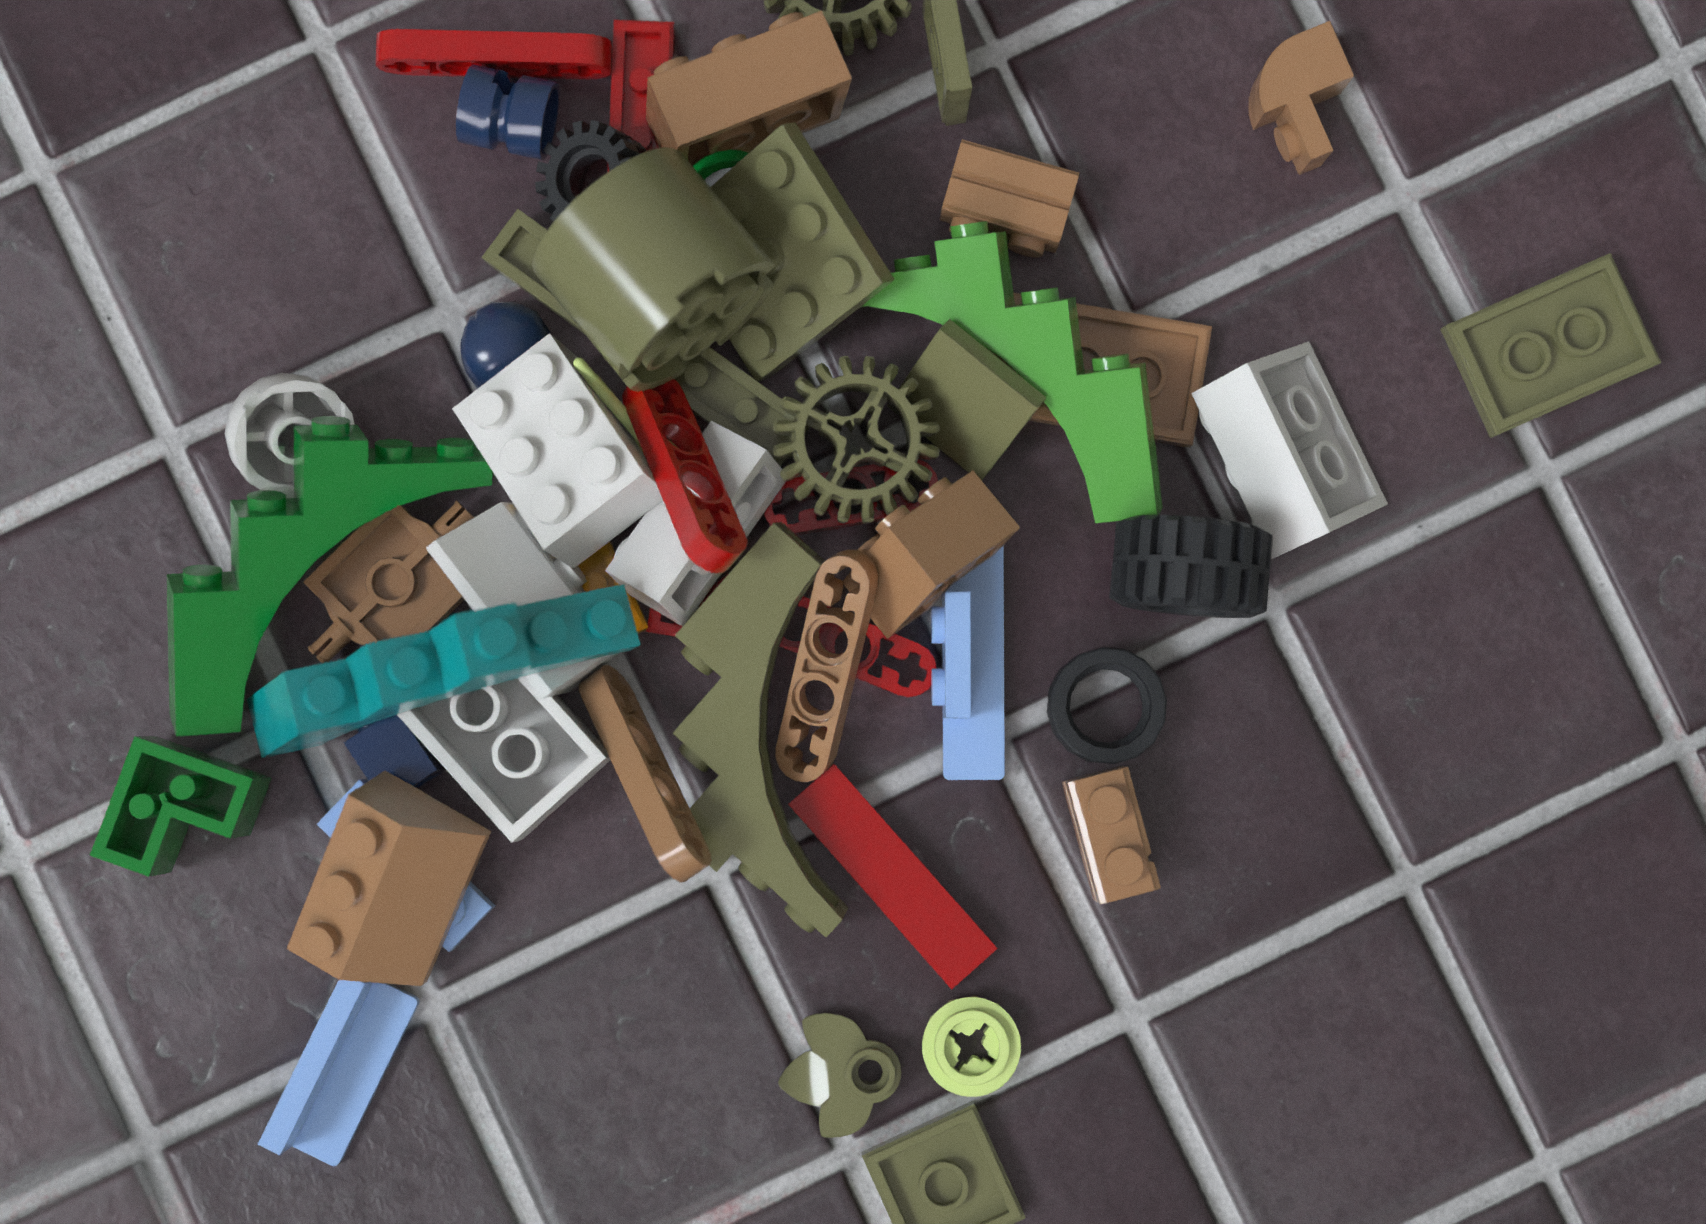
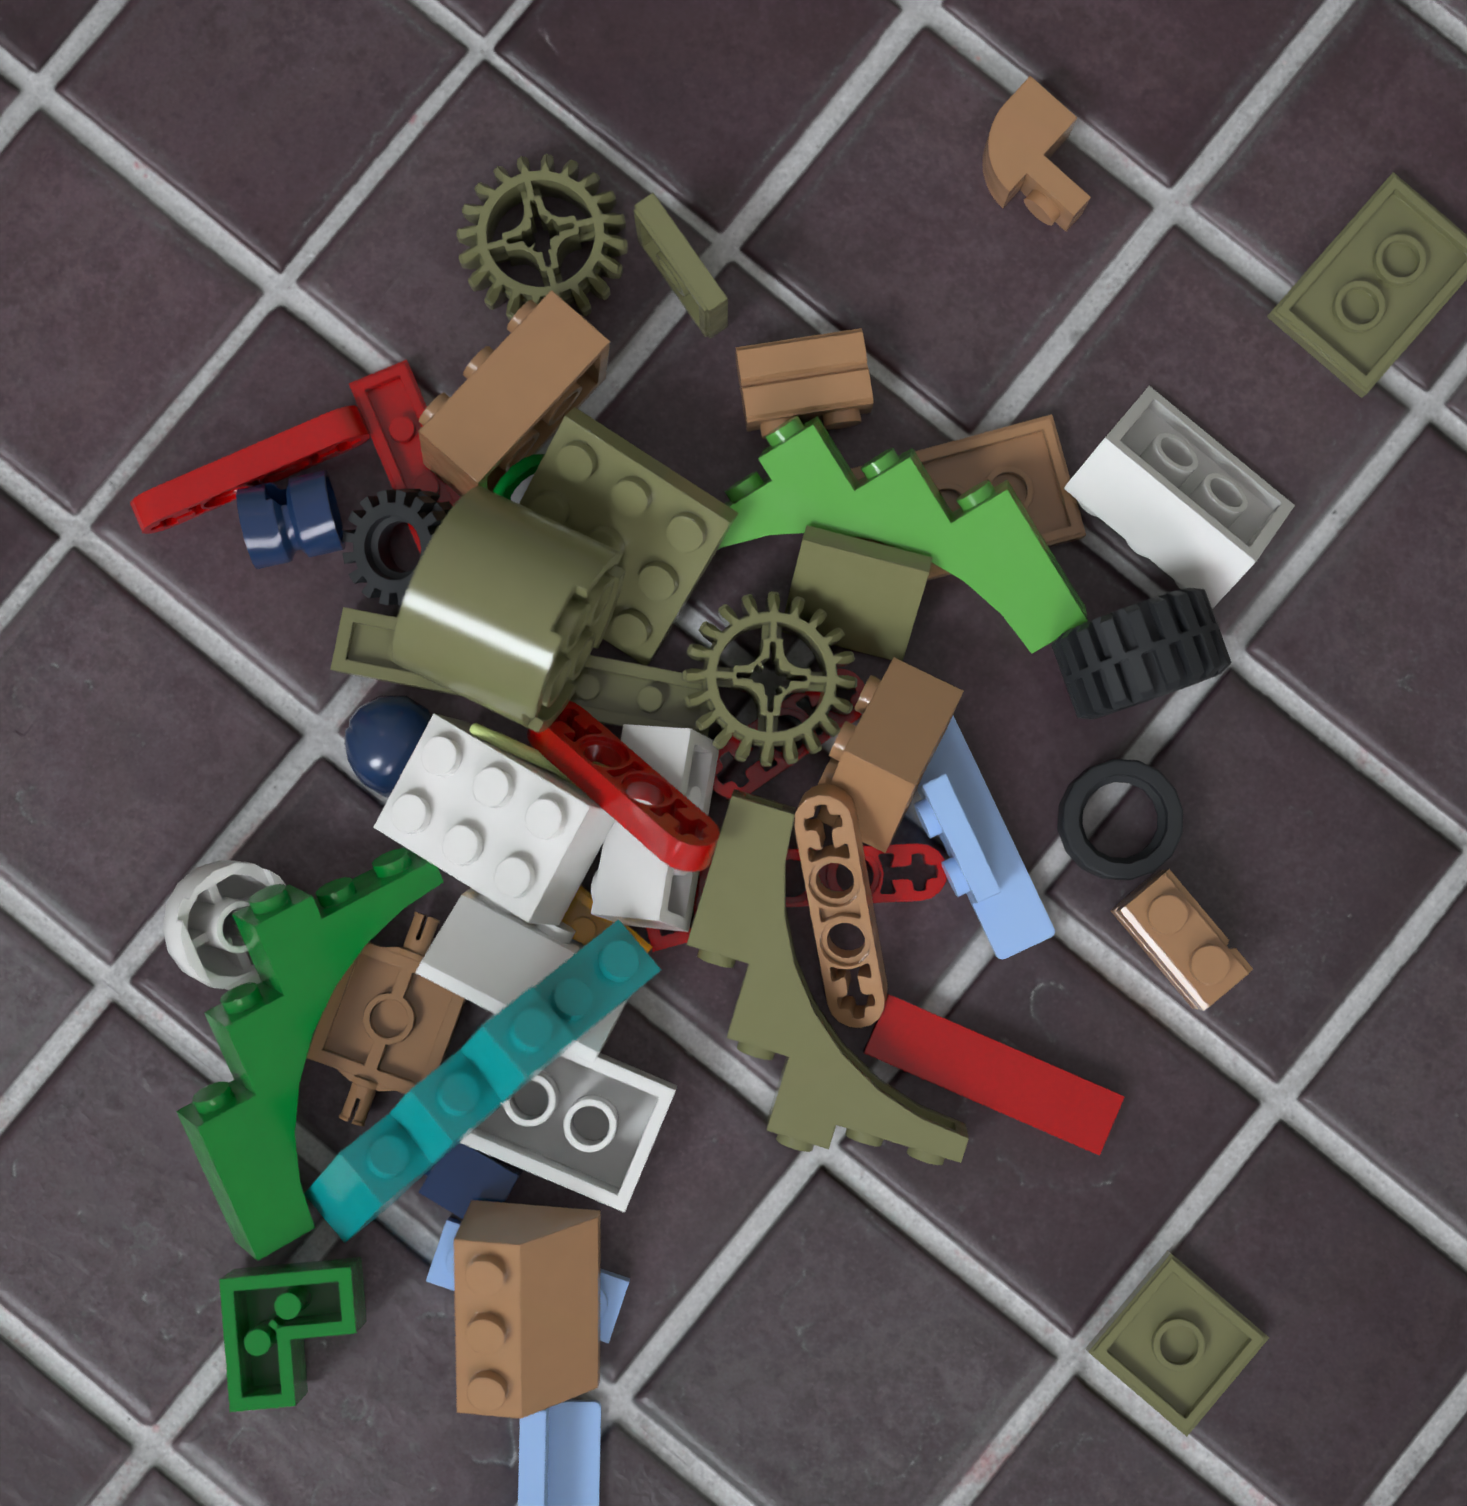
camera: 25 degrees left, 0 degrees up
(645, 774) = (718, 1088): medium nougat beam -> none
(830, 1074) = (1023, 1291): olive plate -> none
(976, 1075) = (1159, 1225): yellowish green gear -> none

